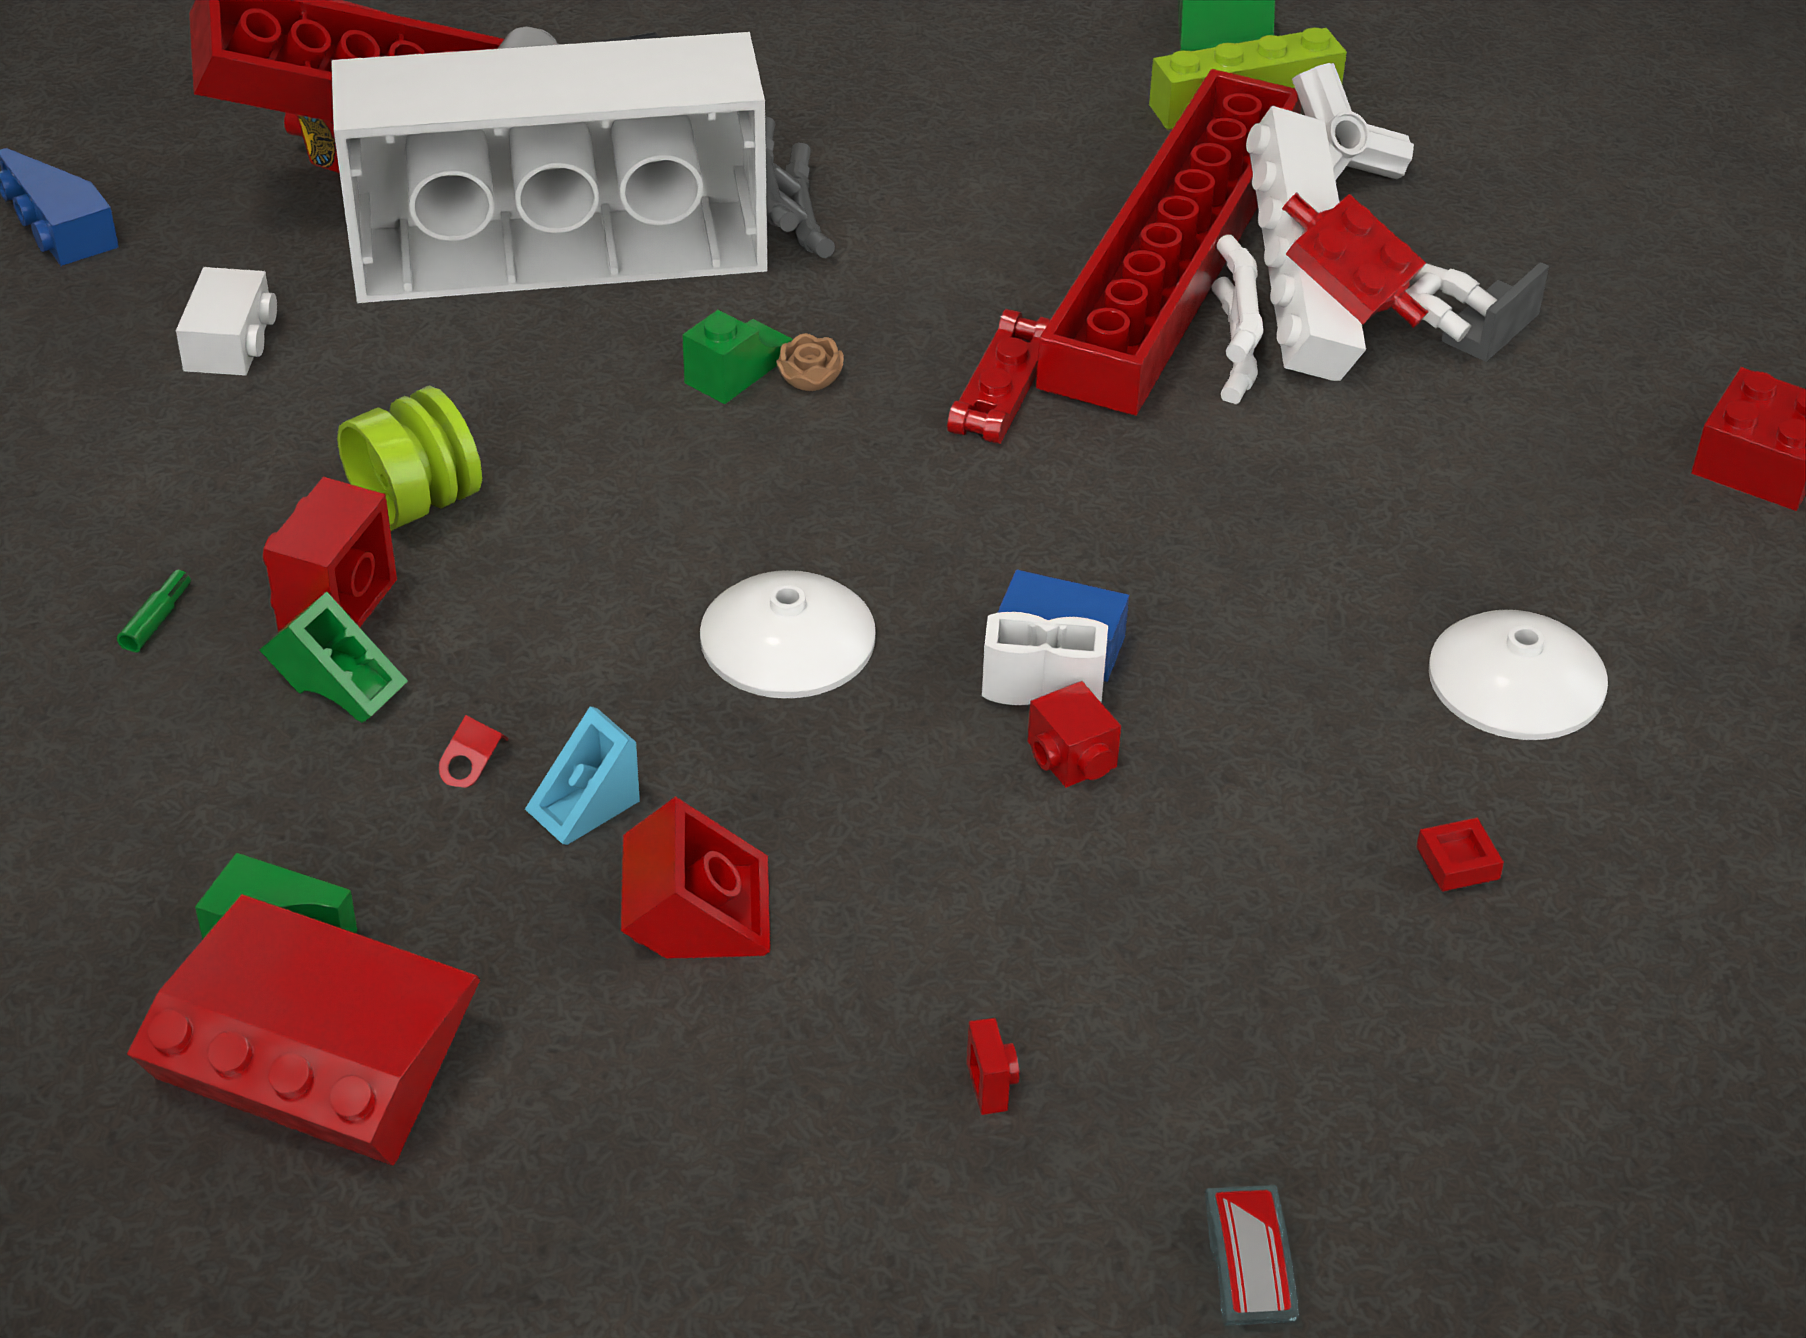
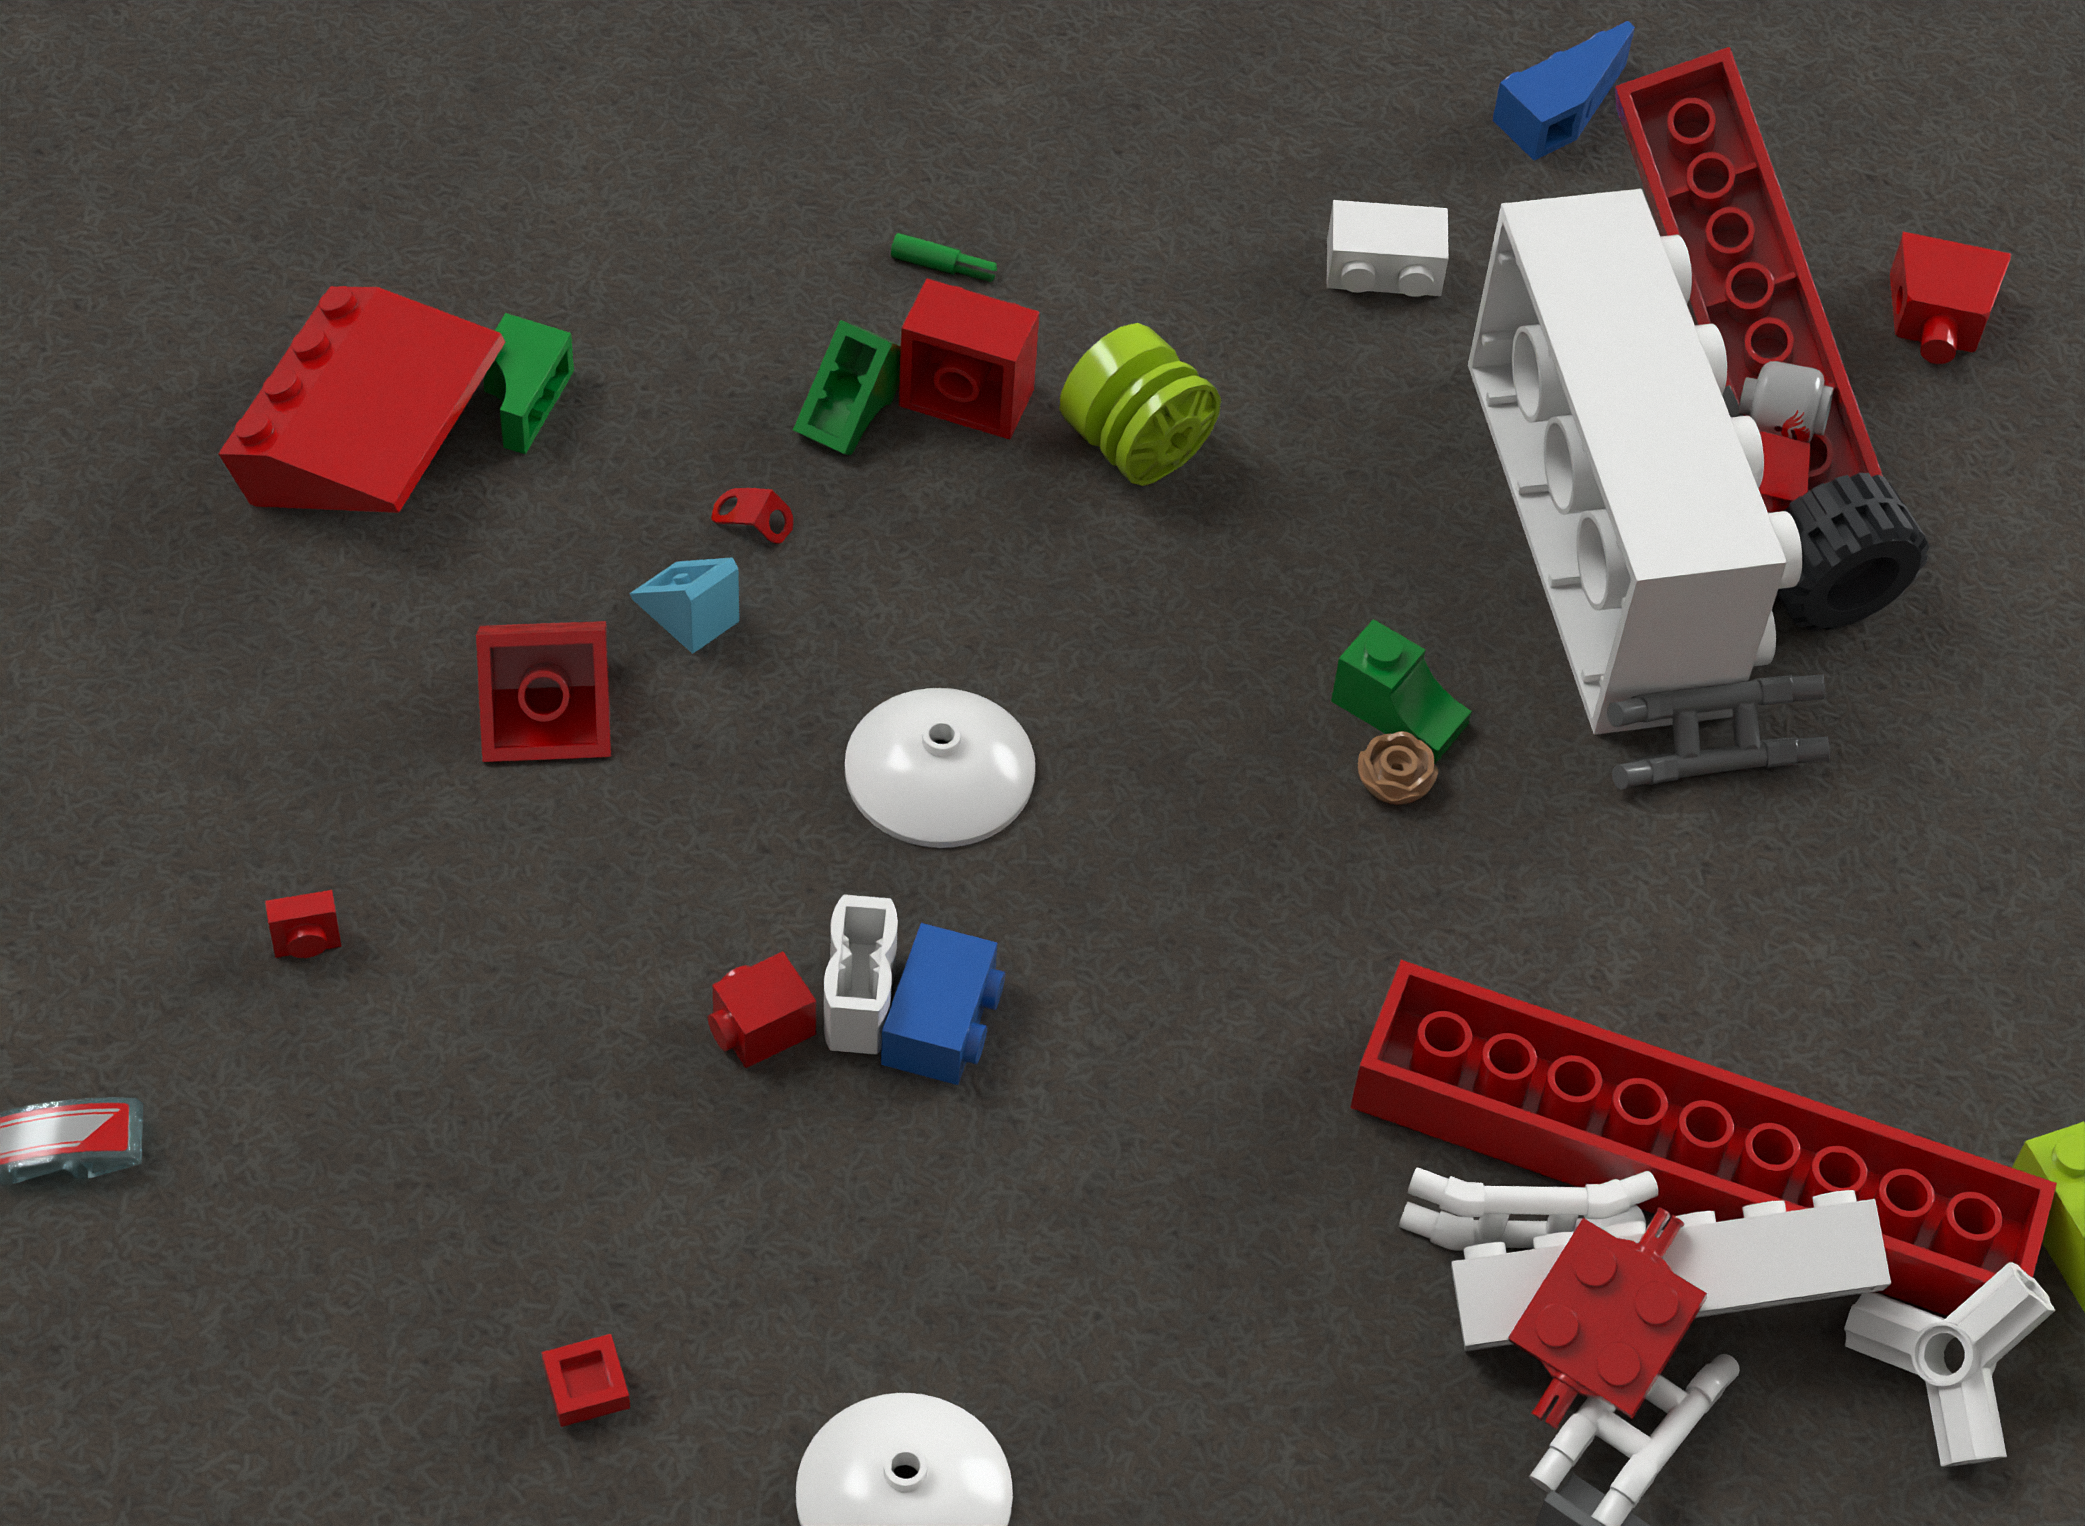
camera: 85 degrees right, 10 degrees up
(999, 379) = (1374, 952): red plate -> none

